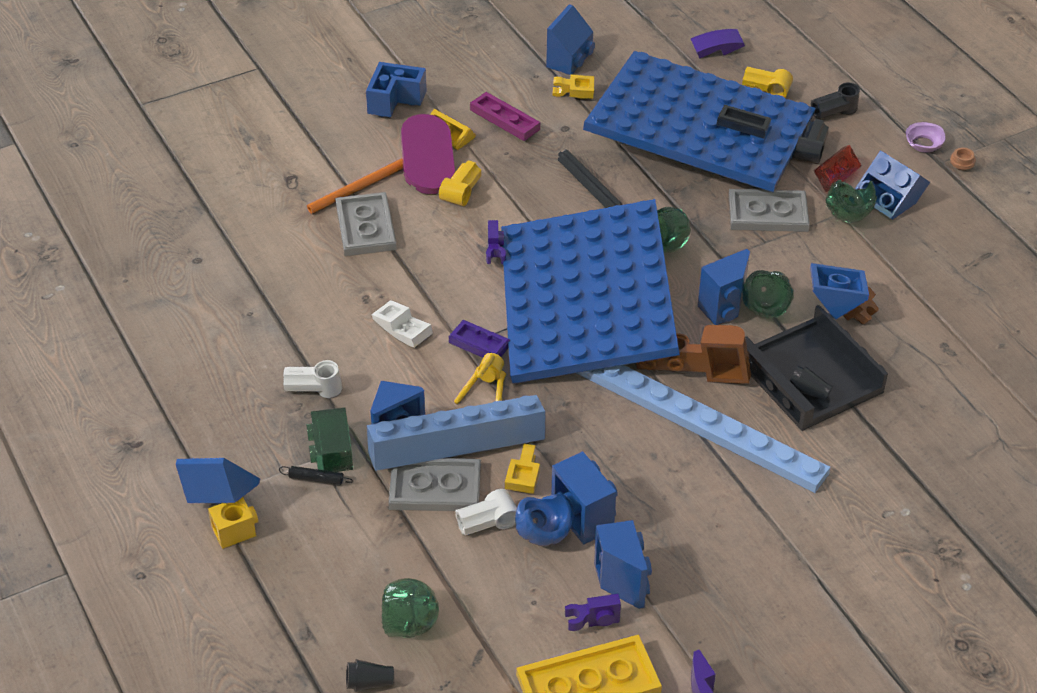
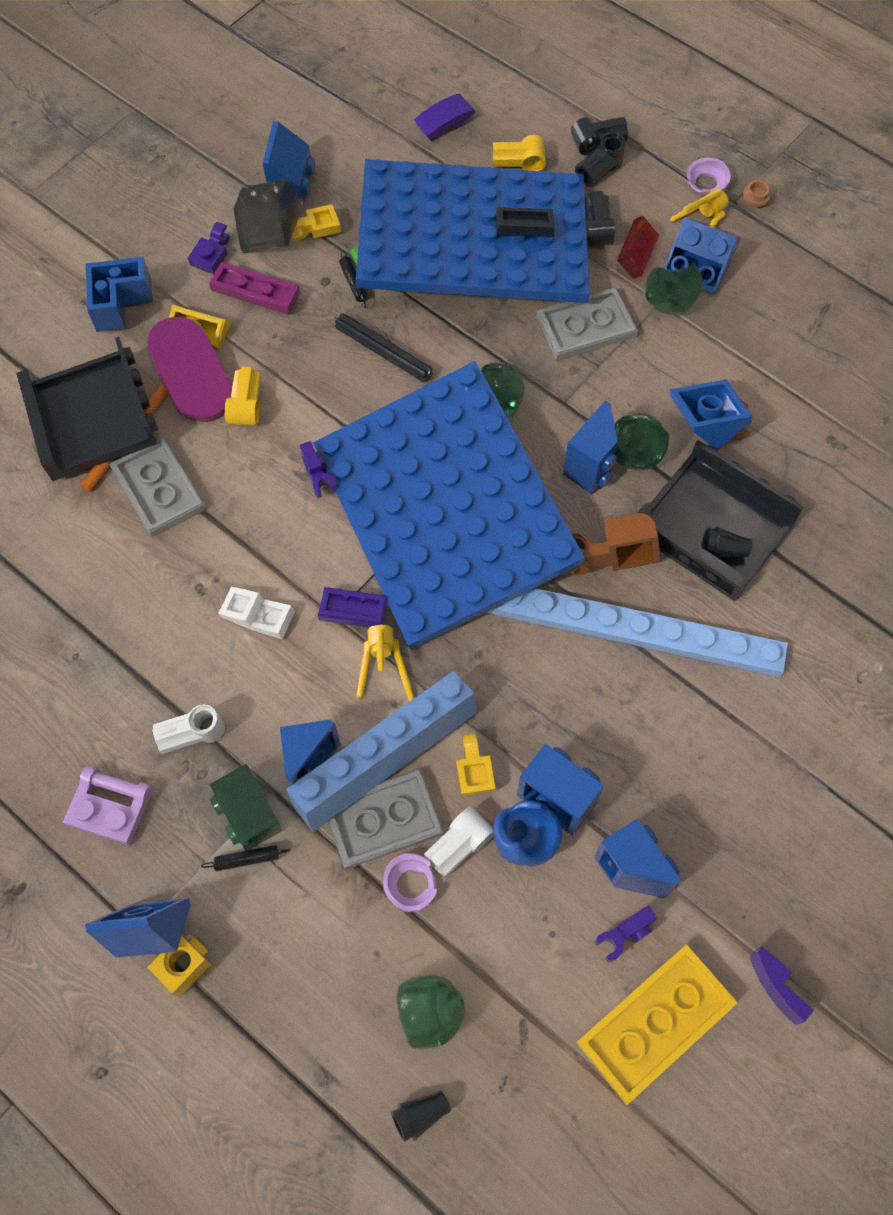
camera: 20 degrees left, 20 degrees up
(224, 418) = (104, 816): none -> lavender plate
(335, 161) = (88, 413): none -> black panel
(434, 517) = (401, 865): none -> lavender piece
(480, 84) = (210, 253): none -> dark purple plate
(537, 68) = (266, 215): none -> clear smoke slope
(588, 137) = (350, 274): none -> black piece
(832, 78) = (589, 133): none -> black piece
(918, 155) = (709, 205): none -> yellow plant

